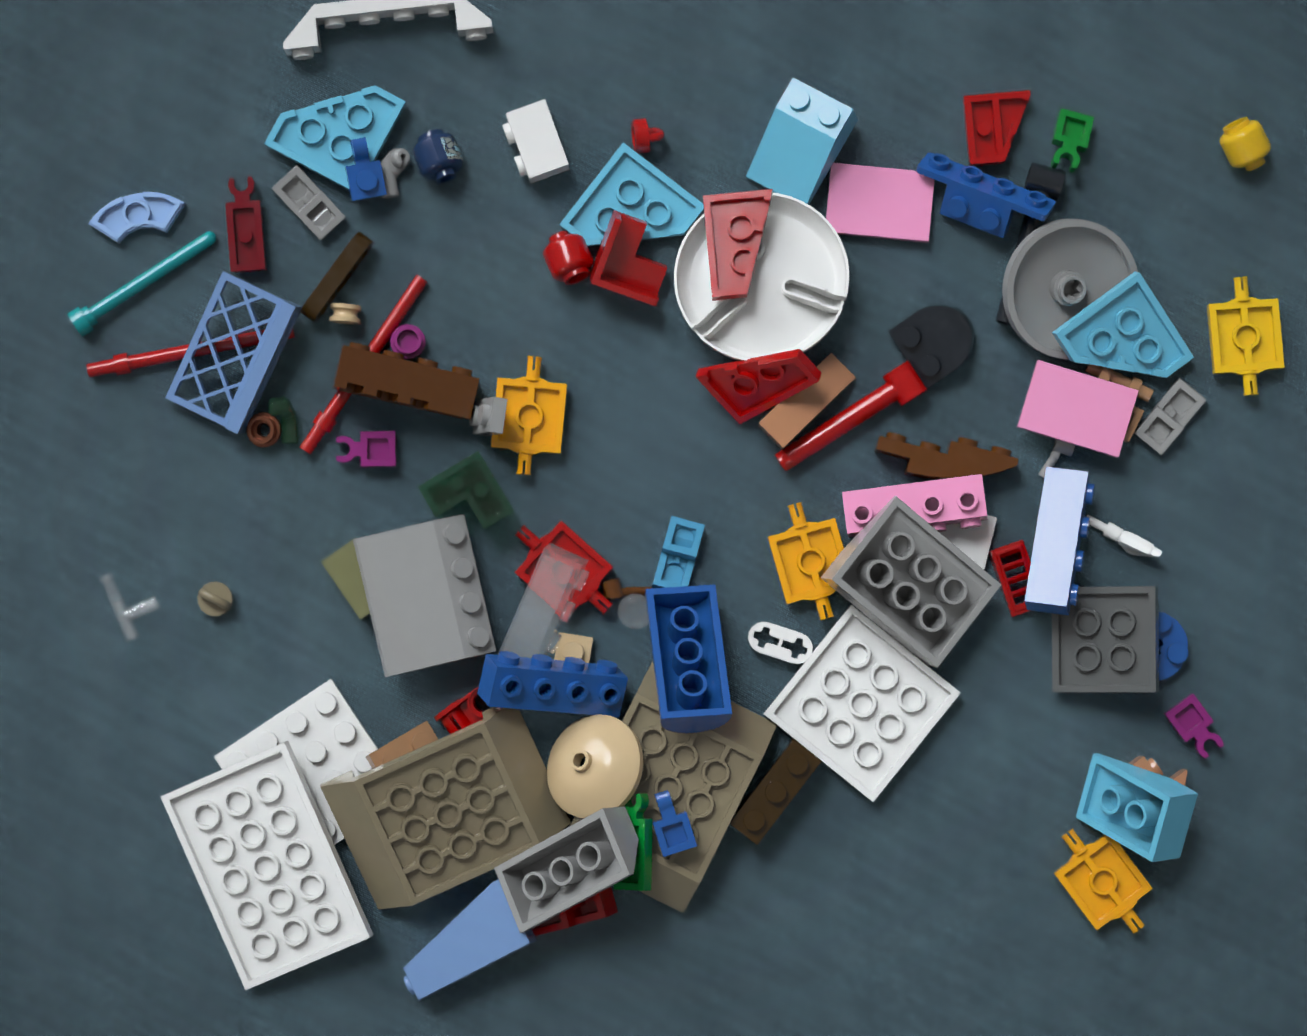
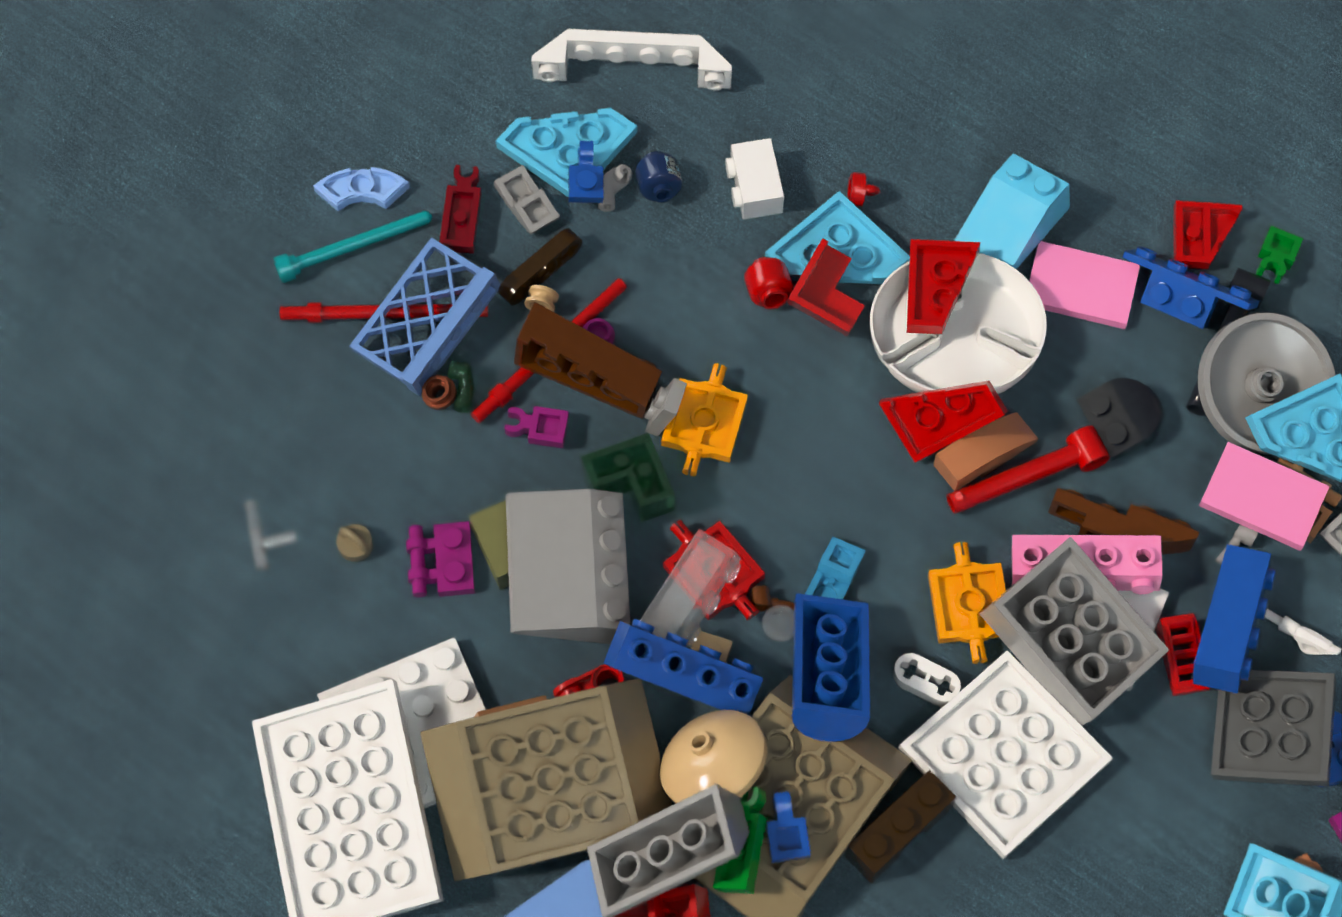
camera: 15 degrees right, 20 degrees down
(312, 597) = (453, 559): none -> magenta plate

